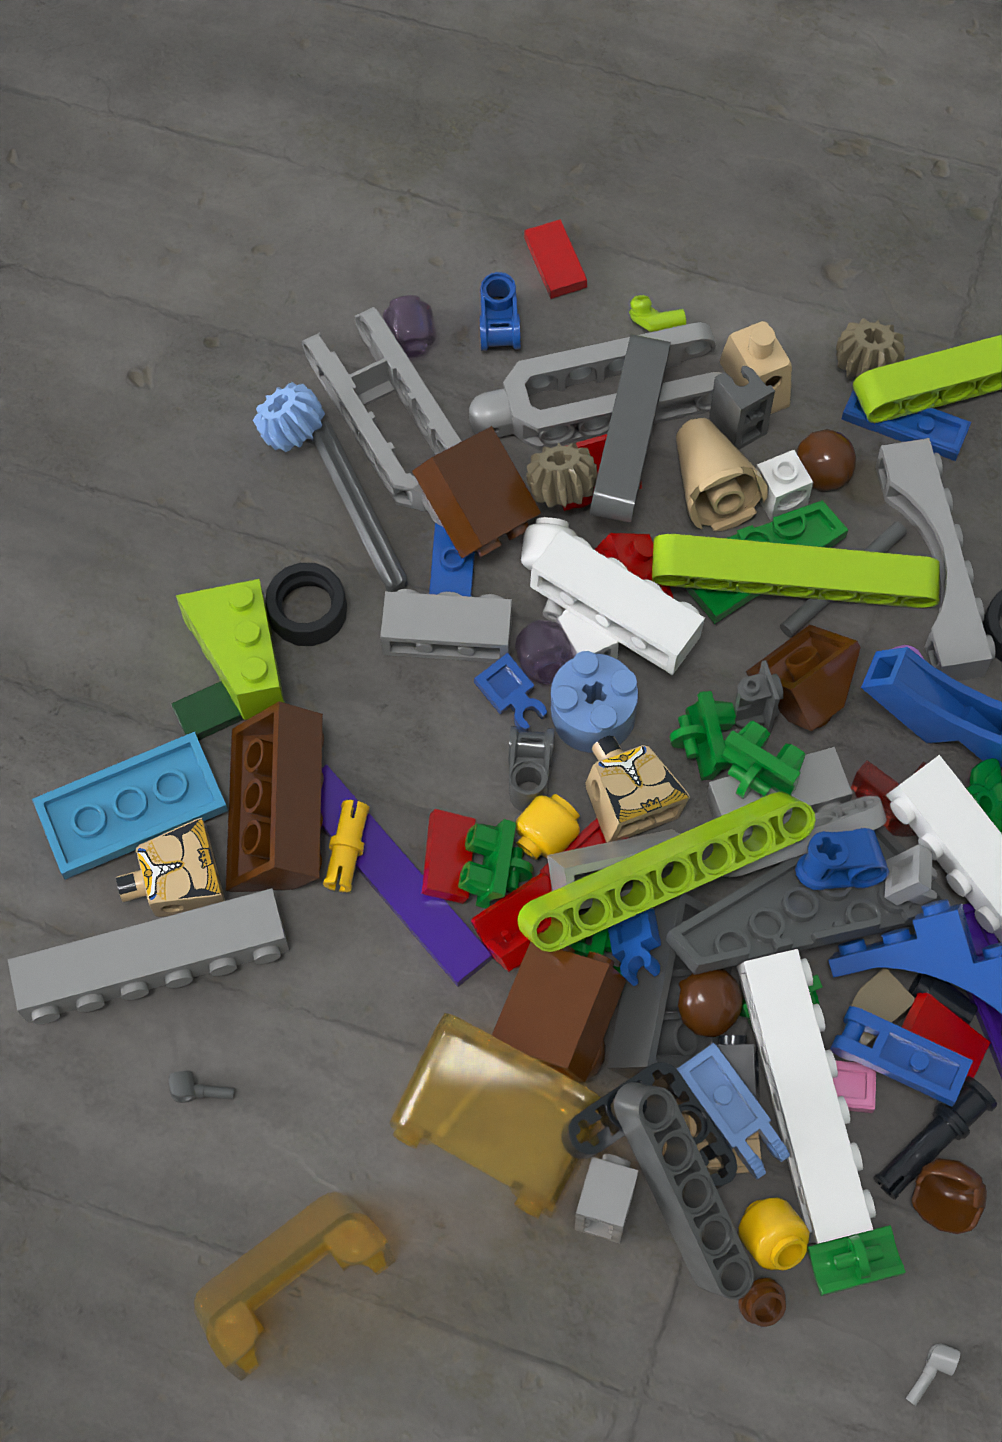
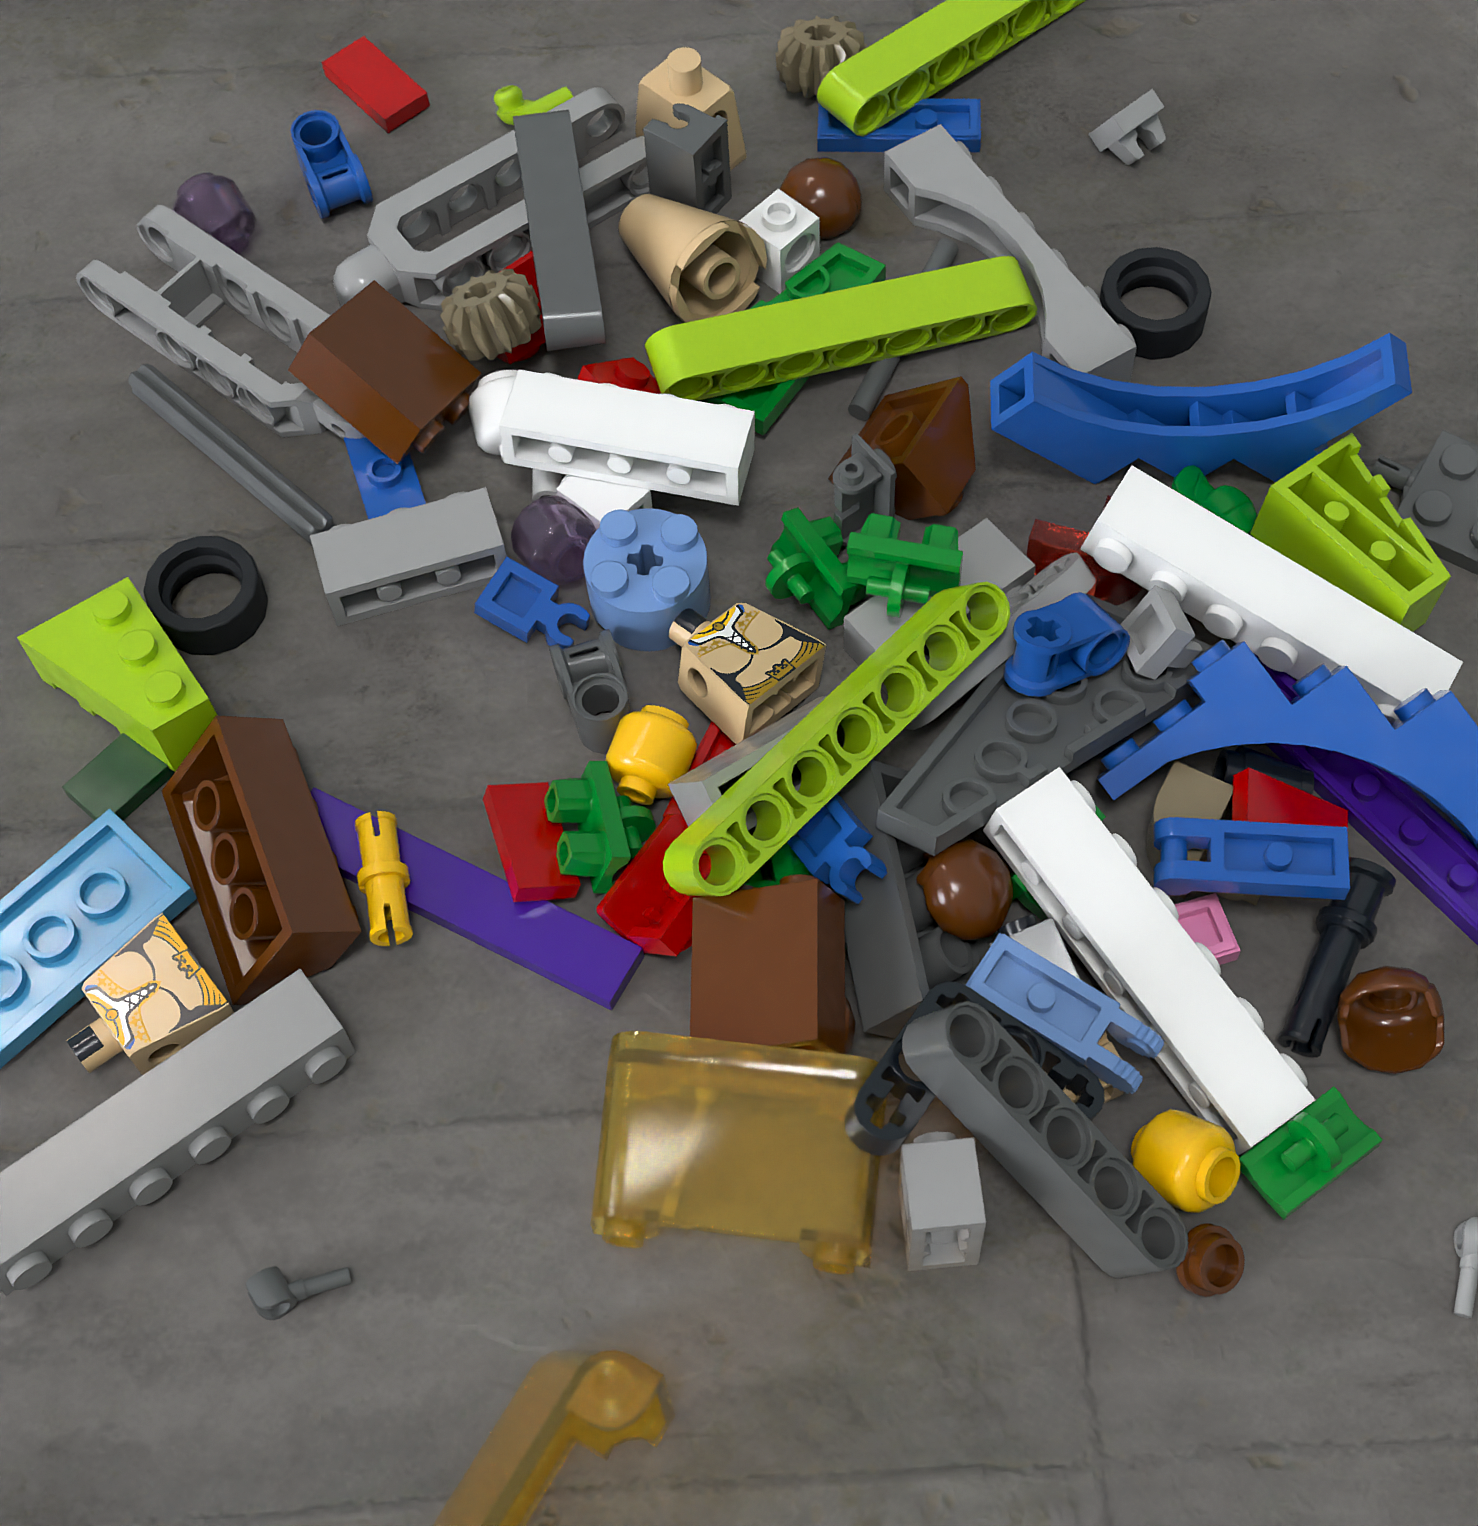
camera: 20 degrees left, 5 degrees down
(289, 417) = (92, 371): light blue gear -> none

